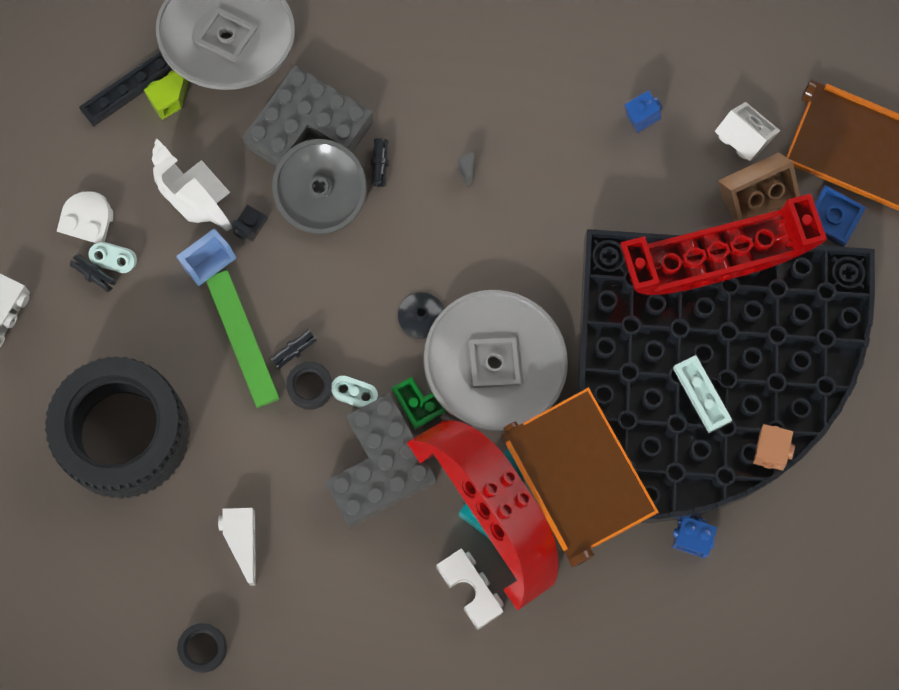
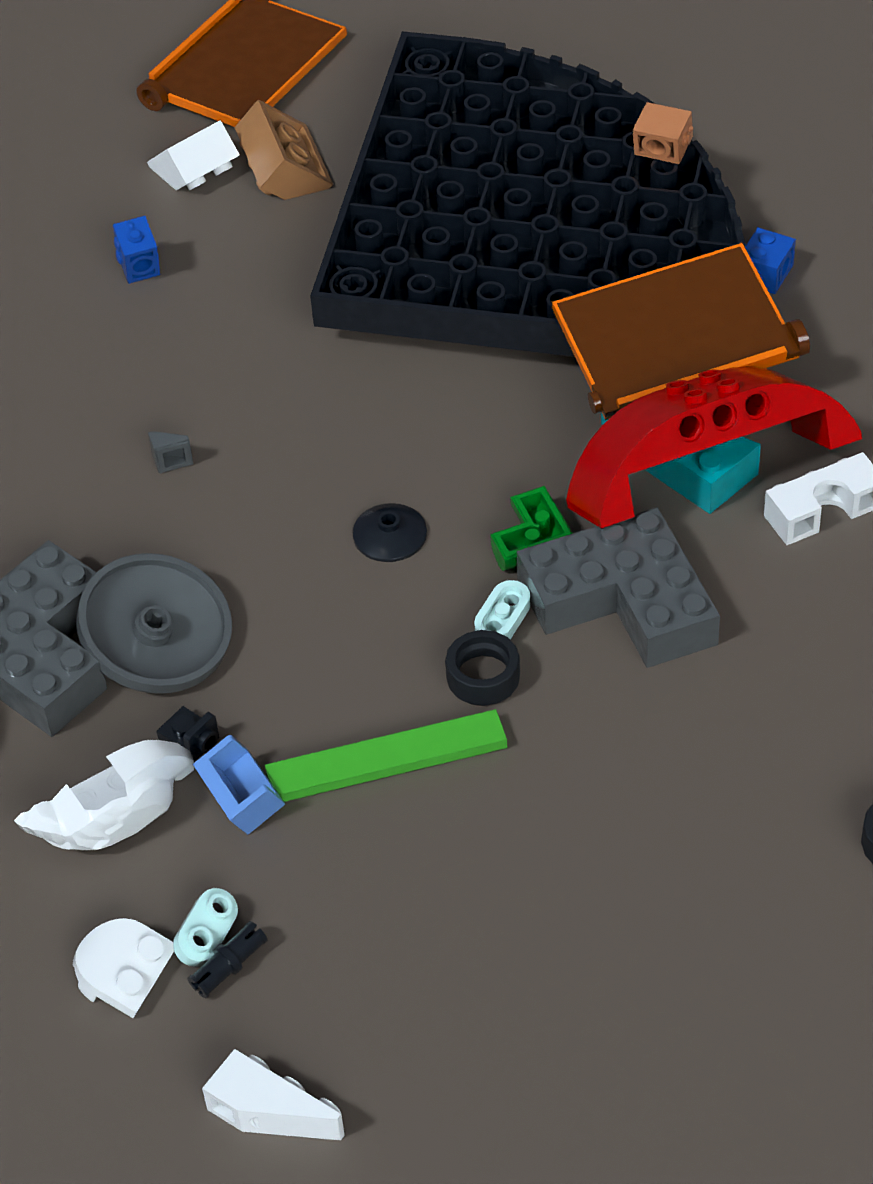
camera: 75 degrees left, 25 degrees down
(87, 388) = (513, 829): black tyre -> none
(239, 532) = (728, 769): white slope -> none
(293, 349) = (418, 685): black pin -> none
(380, 162) = (108, 551): black pin -> none
(499, 327) = (436, 420): light grey dish -> none
(702, 394) = (577, 194): light aqua plate -> none
(724, 250) = (380, 123): red slope -> none
(838, 215) = (334, 96): blue tile -> none

